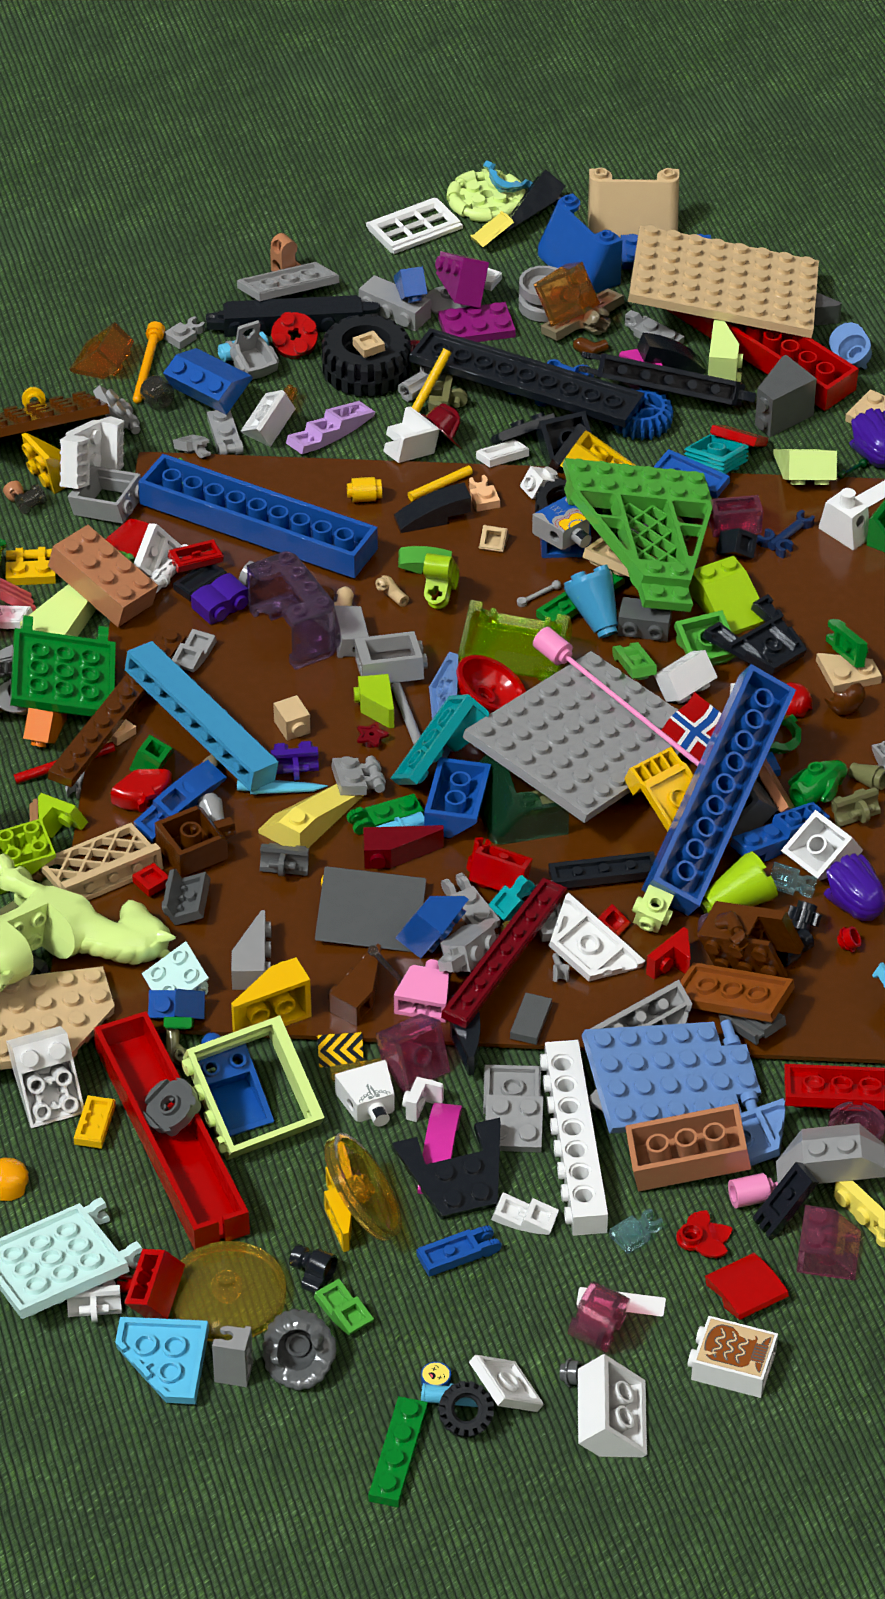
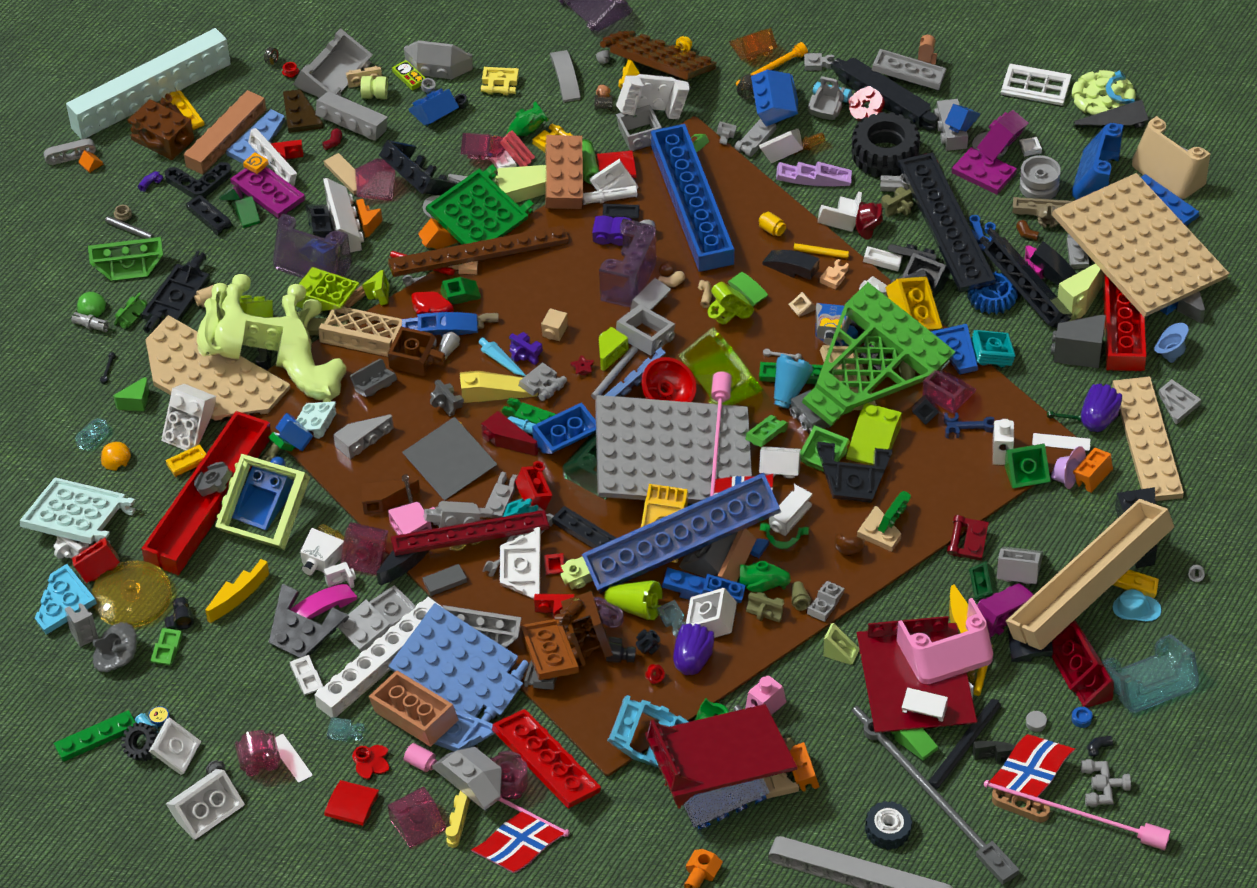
camera: 50 degrees right, 5 degrees up
(118, 408) = (708, 79): light grey plate -> none
(150, 879) = (371, 355): red plate -> none
(195, 650) = (558, 252): light grey slope -> none
(196, 557) = (629, 198): red tile -> none
(201, 716) = (502, 287): dark azure brick -> none
(278, 991) = (330, 465): yellow slope -> none
(339, 1049) = (340, 518): sticker -> none
(363, 1186) = (235, 592): clear yellow dish -> none
(368, 344) = (877, 137): tan plate -> none
(431, 380) = (907, 176): yellow bar -> none
(432, 923) = (457, 487): blue slope -> none
(444, 729) = (608, 387): teal plate -> none
(457, 1250) = (251, 665): blue hinge -> none
(492, 229) = (1069, 117): light yellow piece -> none
(566, 293) = (1037, 185): clear orange slope -> none
(733, 1356) = (294, 830): brick -> none
(739, 435) = (1025, 346): red tile -> none
(785, 1200) = (420, 775): black hinge -> none
(801, 700) = (823, 522): red hair -> none
(807, 465) = (1035, 391): yellowish green slope -> none

